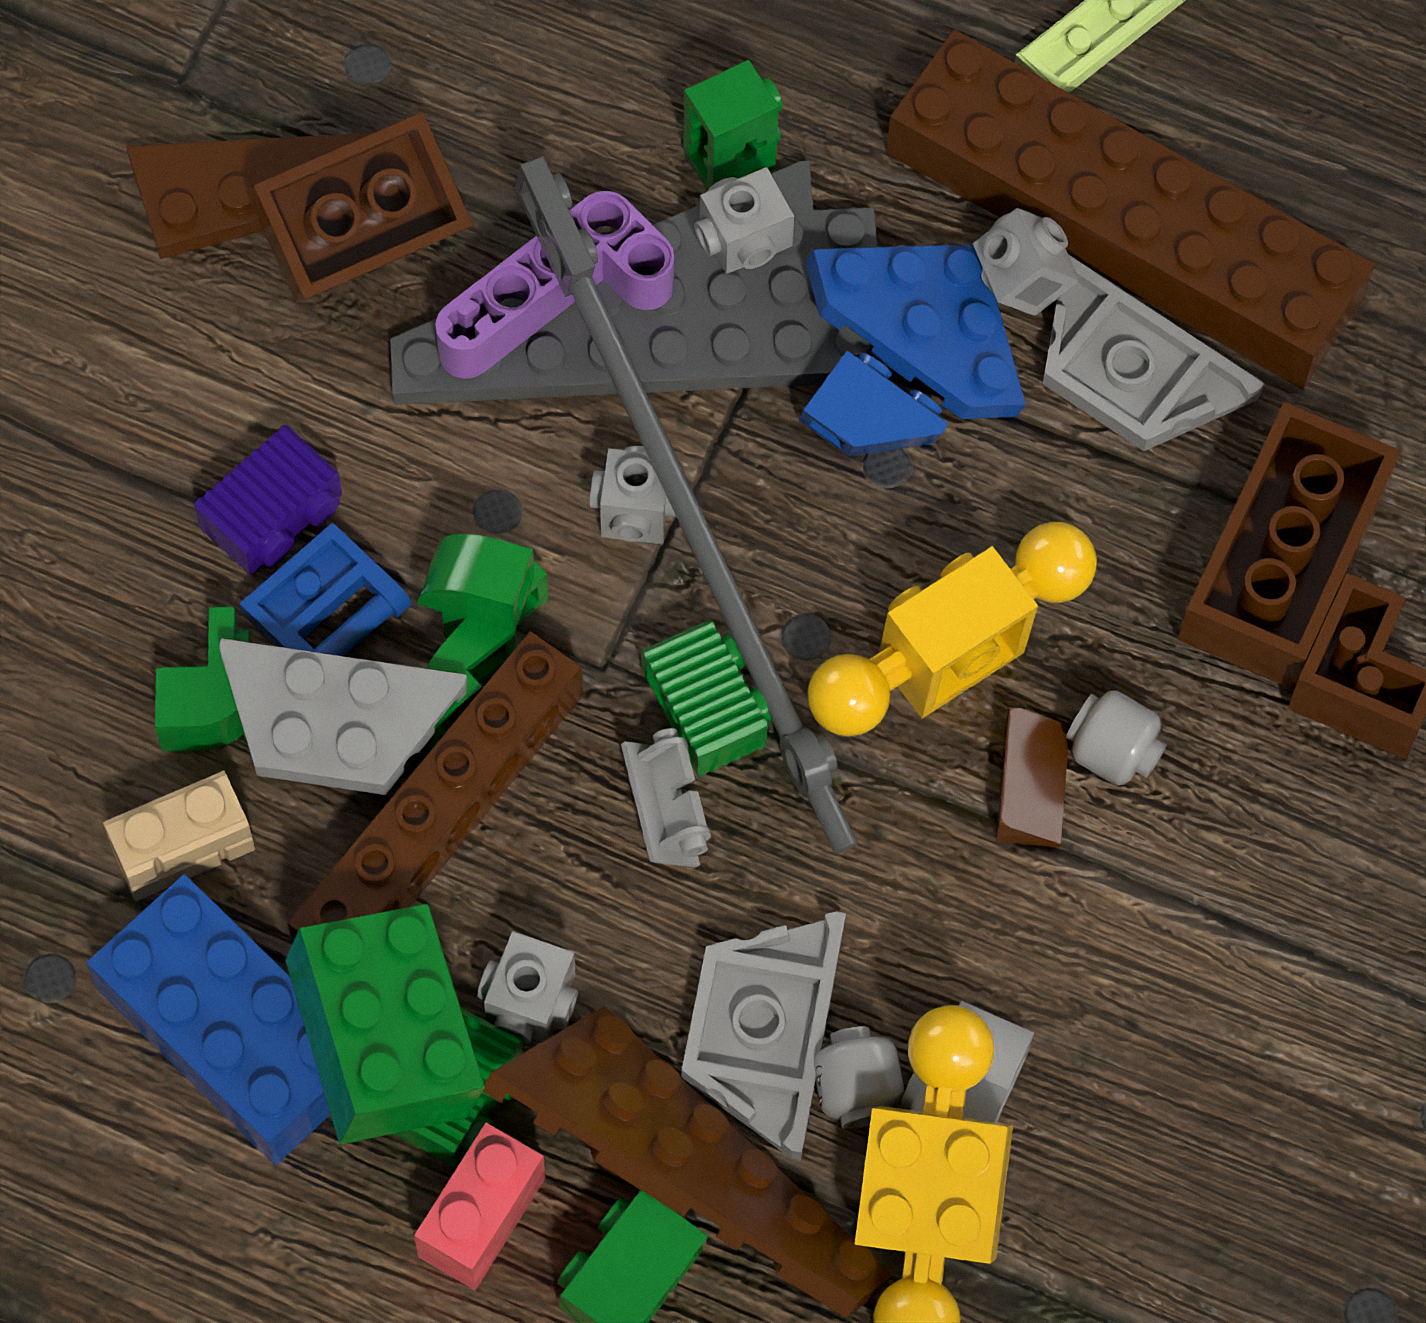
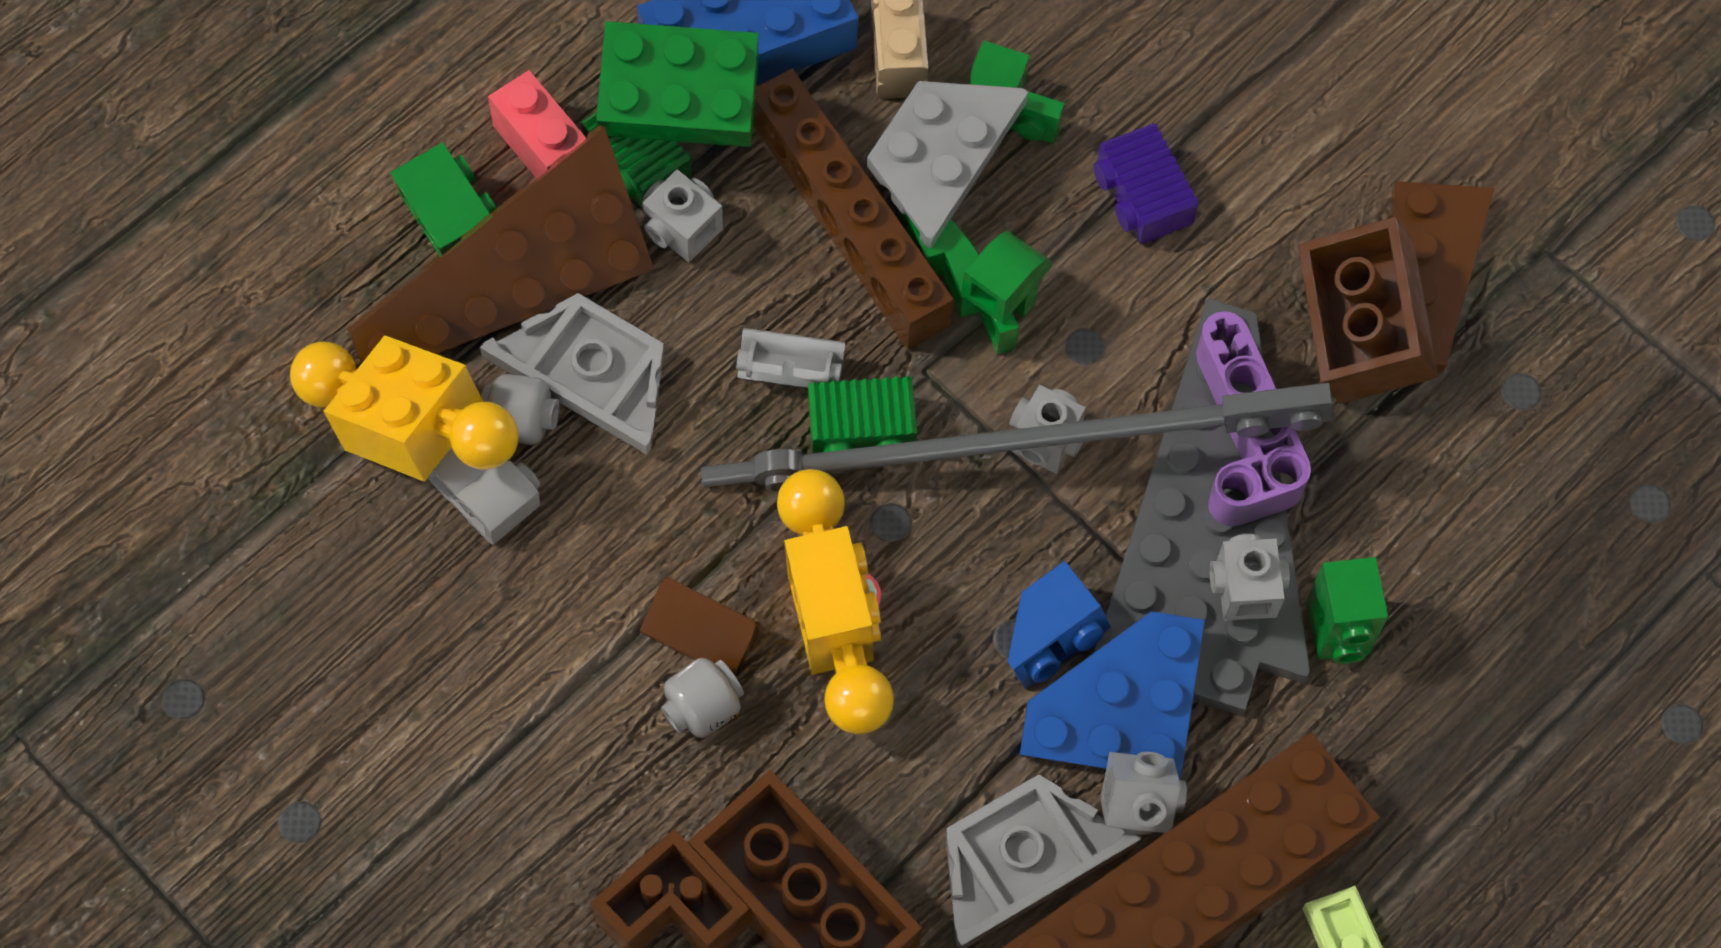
camera: 110 degrees right, 0 degrees up
(314, 587) = (1061, 187): blue plate -> none

